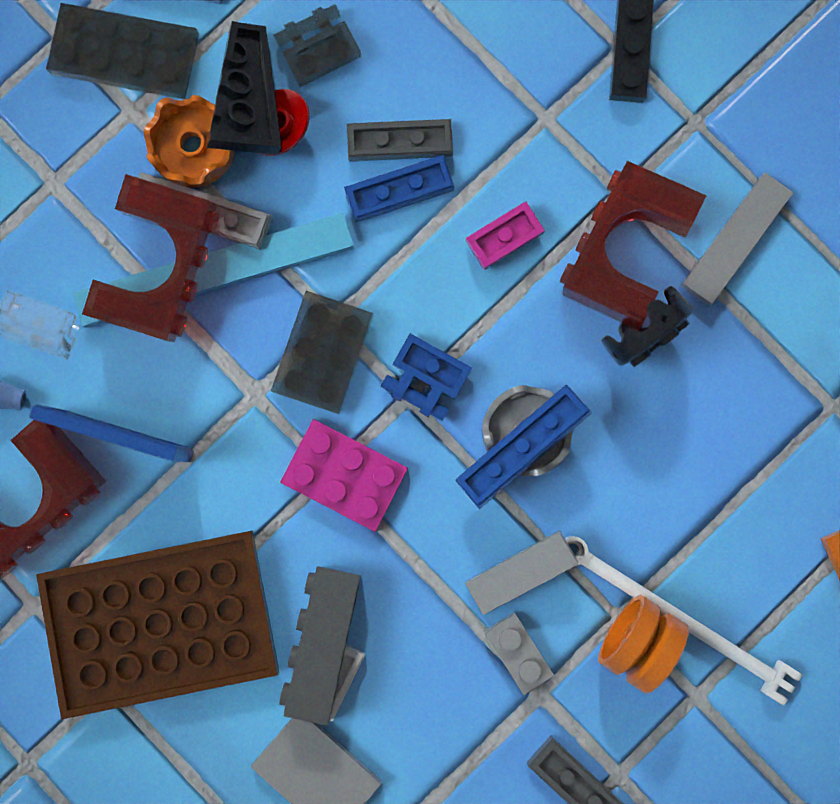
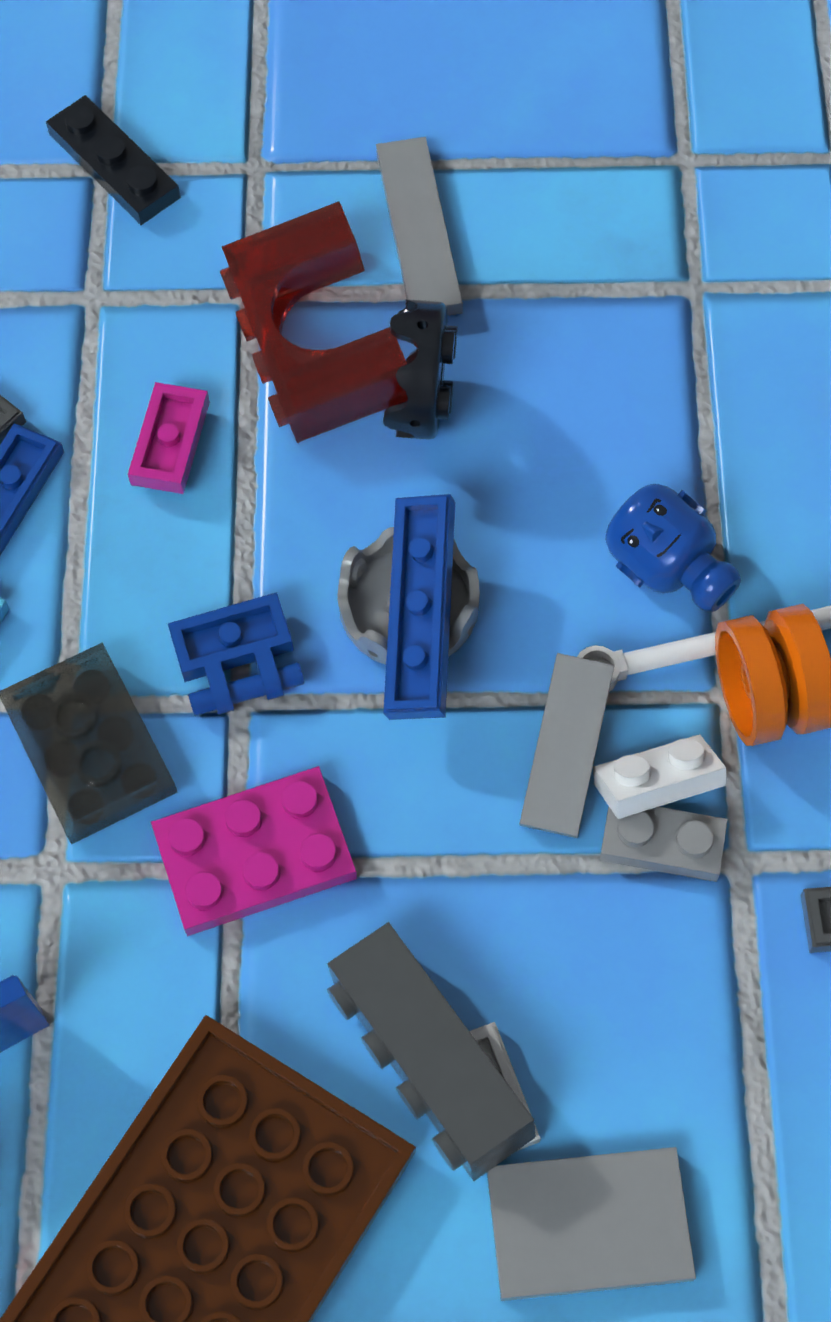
camera: 45 degrees left, 20 degrees down
(546, 628) = (659, 776): none -> white plate
(669, 527) = (669, 545): none -> blue piece

